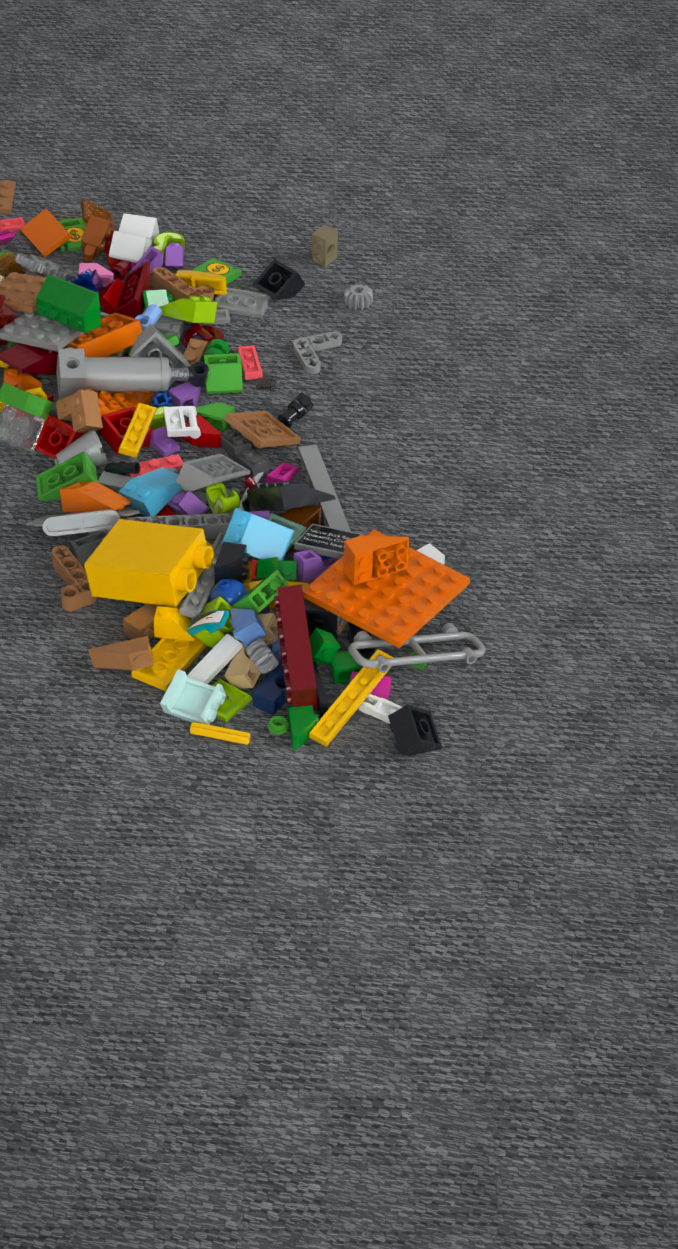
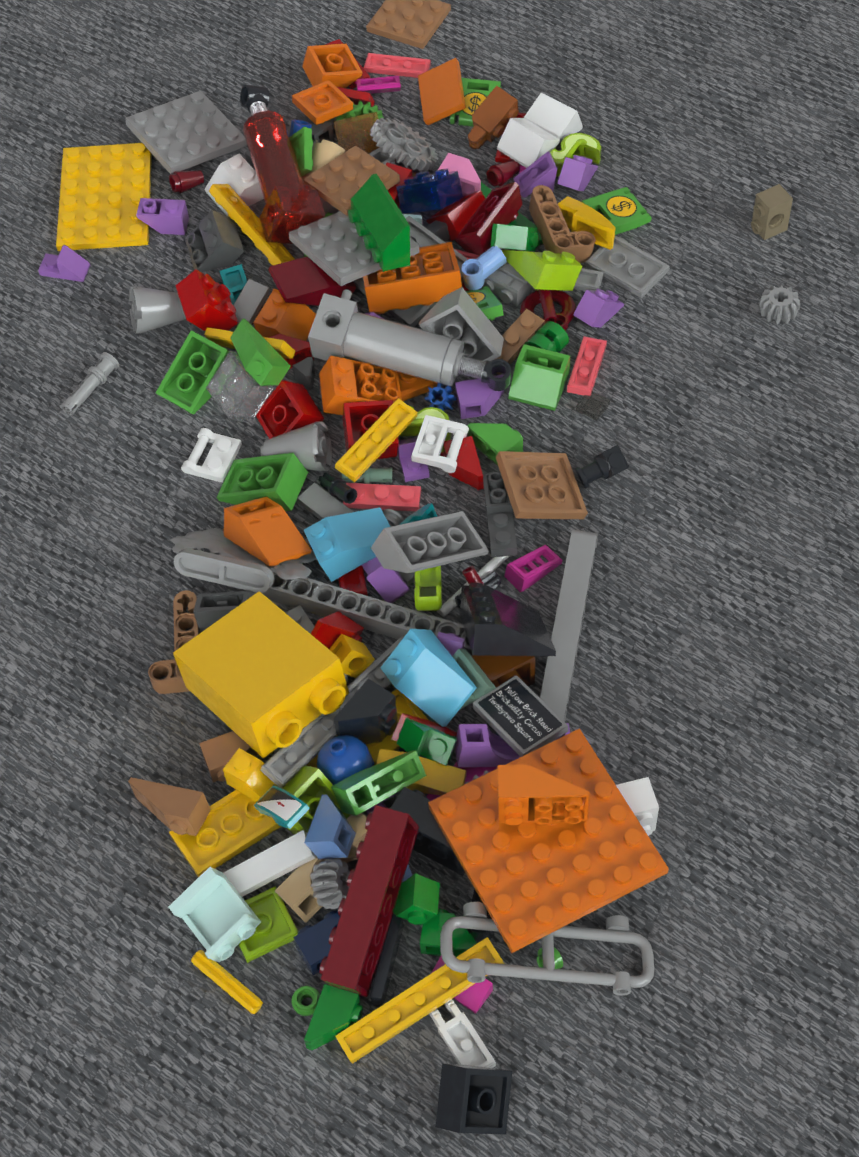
camera: 30 degrees right, 15 degrees up
(24, 477) = (218, 459): none -> white plate
(80, 409) = (317, 393): medium nougat brick -> none
(89, 208) = (515, 82): clear orange plate -> none
(142, 456) = (374, 475): none -> sand green pin
(237, 327) = (598, 307): none -> medium lavender slope
(279, 281) = (685, 251): black slope -> none
(326, 340) = (677, 364): light grey beam -> none

